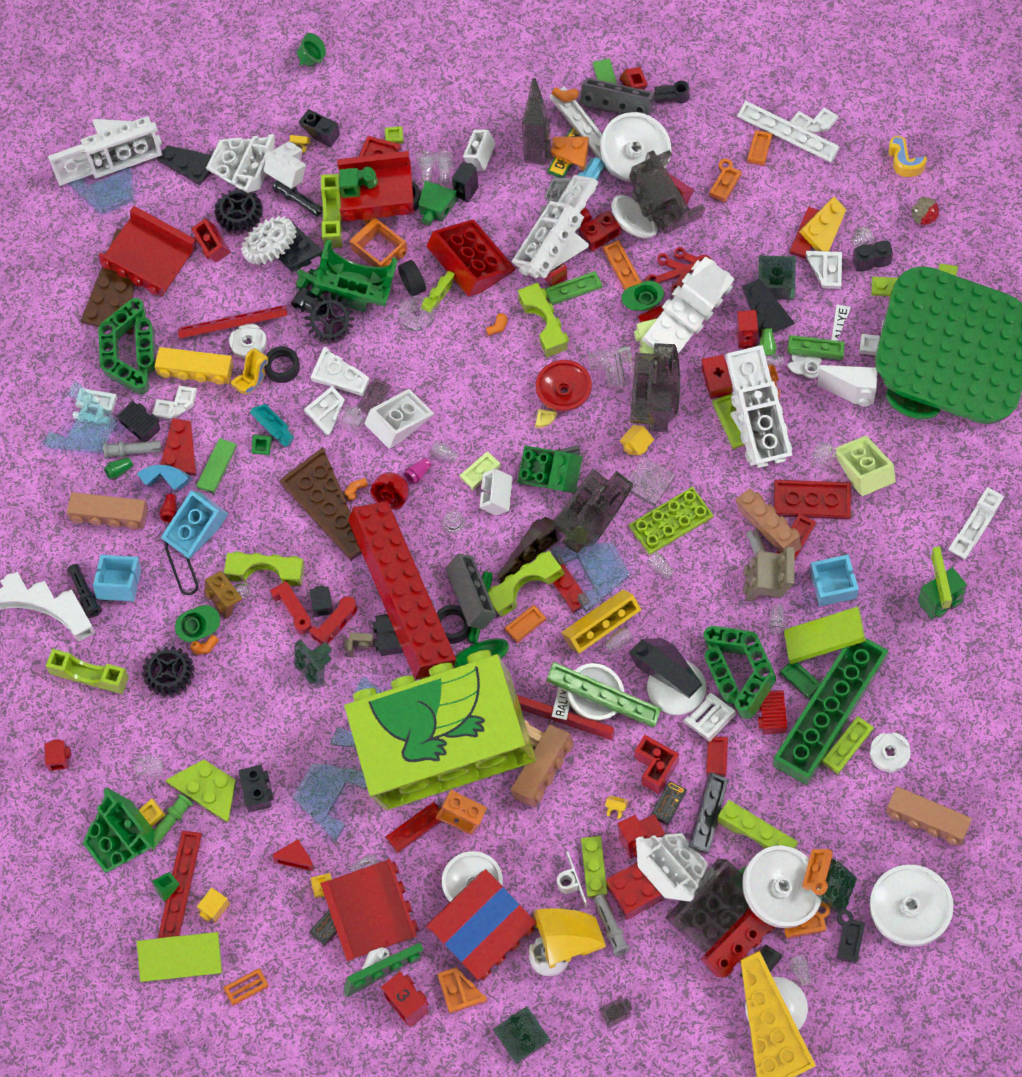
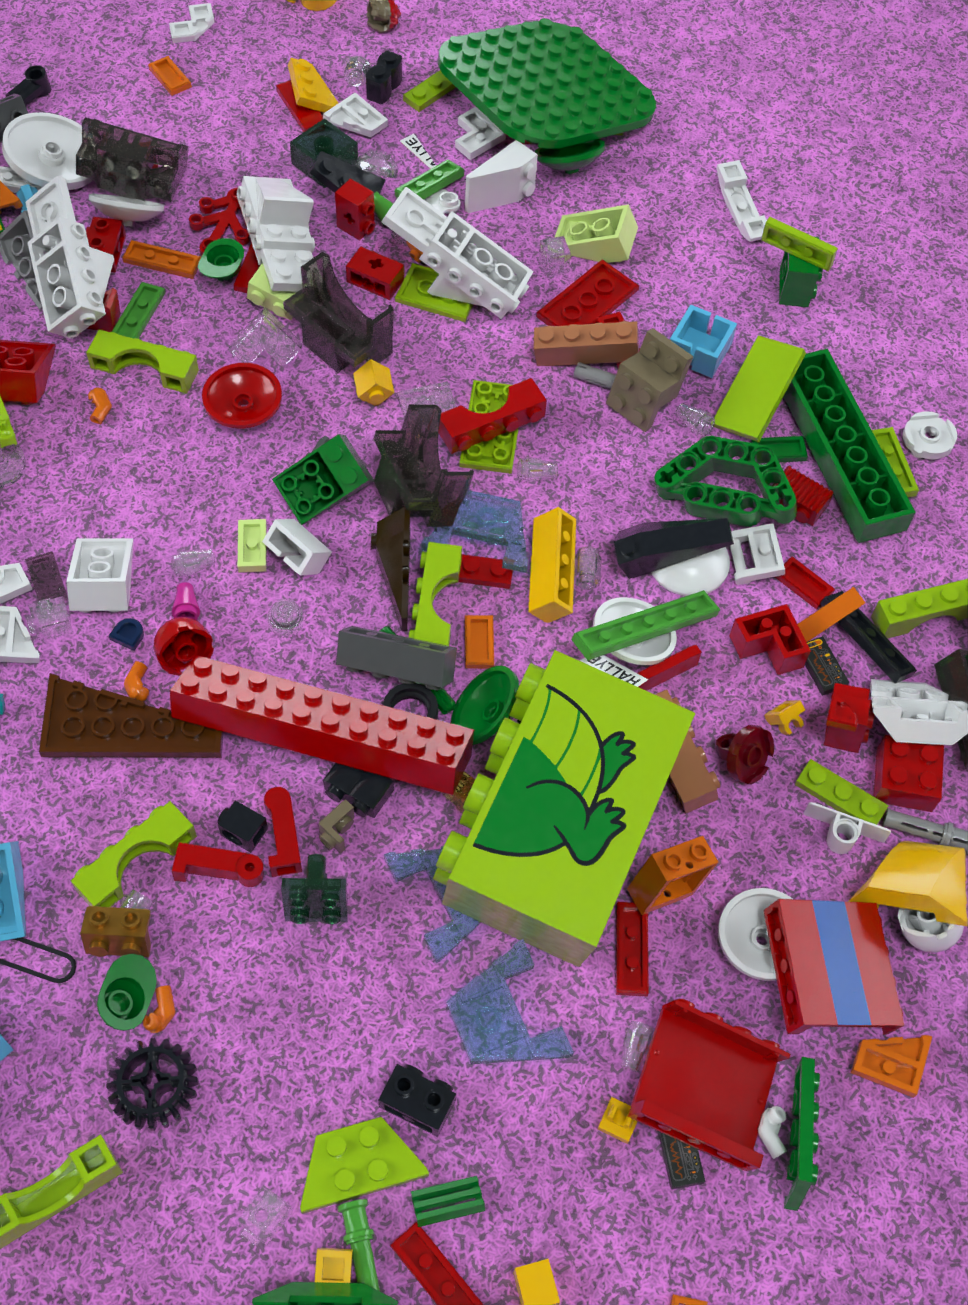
camera: 60 degrees left, 5 degrees down
(223, 837) = (446, 1196): none -> green tile
(294, 856) = (555, 1121): red slope -> none
(379, 460) = (127, 633): none -> dark blue tile
(404, 998) = (869, 1132): red brick -> none
(544, 418) = (254, 445): light yellow tile -> none
(570, 801) = (746, 753): none -> dark red tile
(621, 825) = (841, 715): none -> red tile
(689, 524) = (465, 428): none -> red arch
(700, 782) = (831, 614): none -> orange sticker
(726, 181) = (173, 119): orange hinge -> none
(788, 131) = (180, 43): white tile -> none
(795, 311) = (377, 163): none -> clear piece

